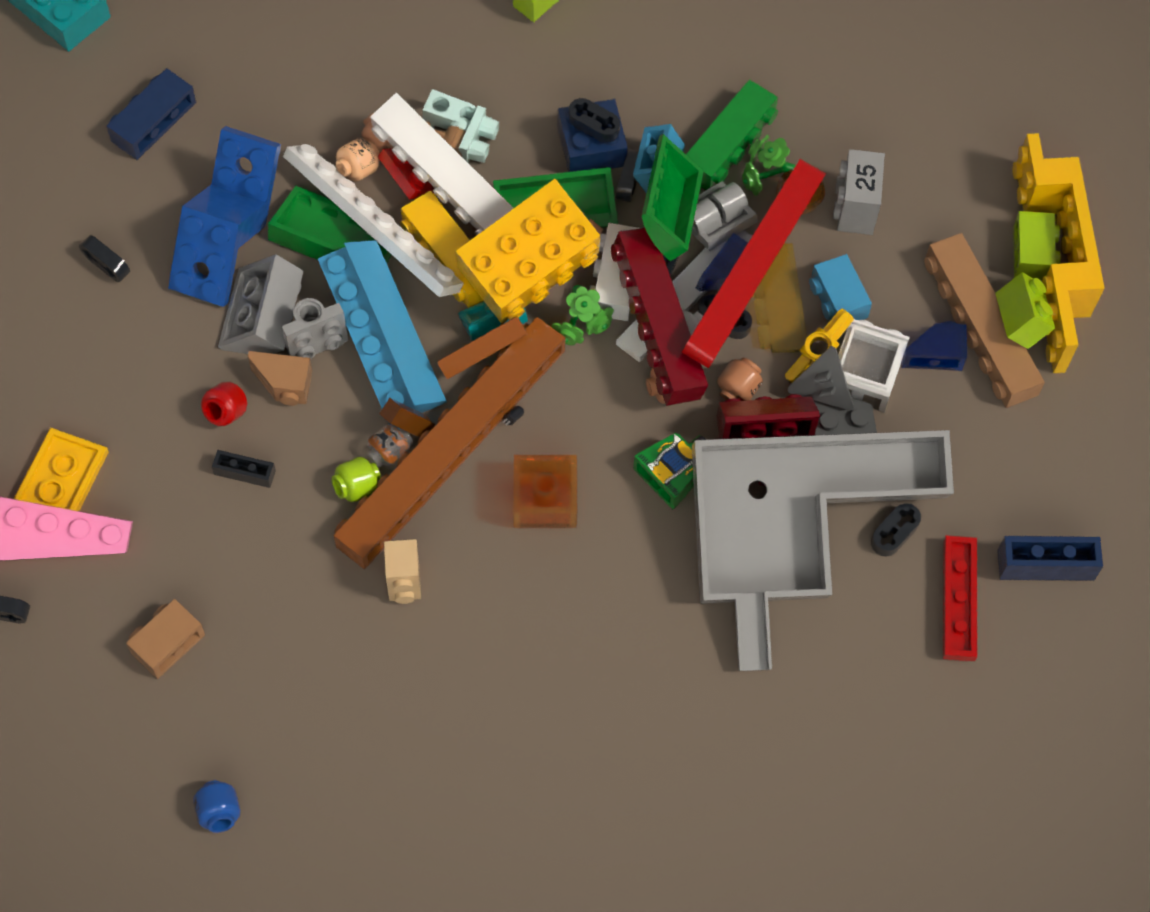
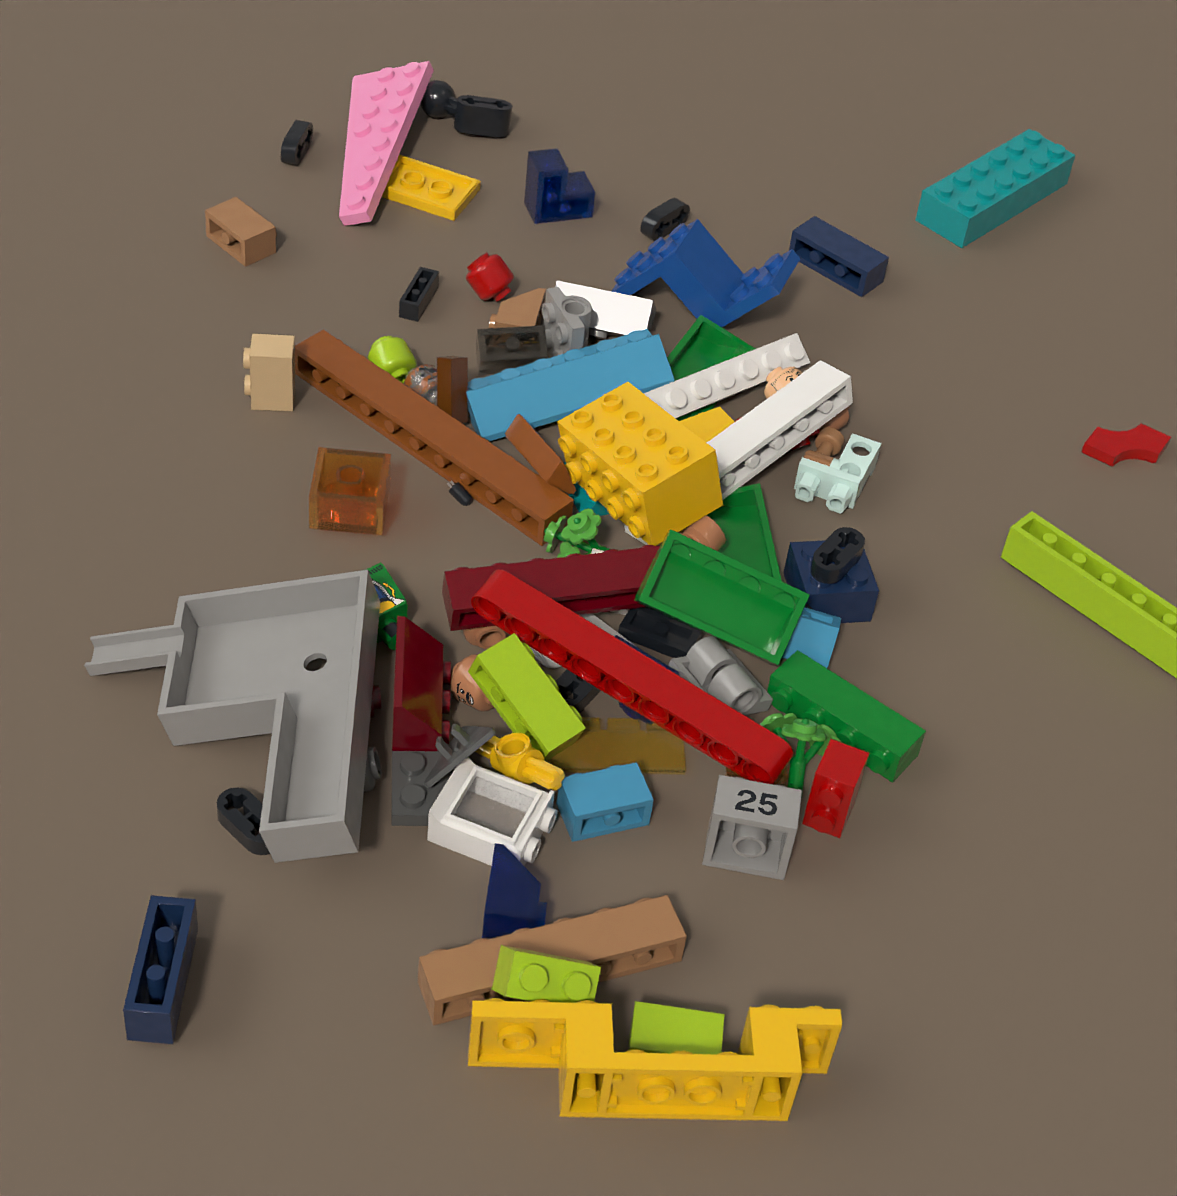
camera: 90 degrees right, 20 degrees down
(75, 352) = (553, 192): none -> clear blue brick
(216, 806) = (58, 249): blue head -> none
(337, 377) = (509, 348): none -> clear smoke brick
(771, 337) = (526, 696): none -> lime brick
(817, 138) = (835, 788): none -> red brick
(960, 598) = (133, 870): red plate -> none

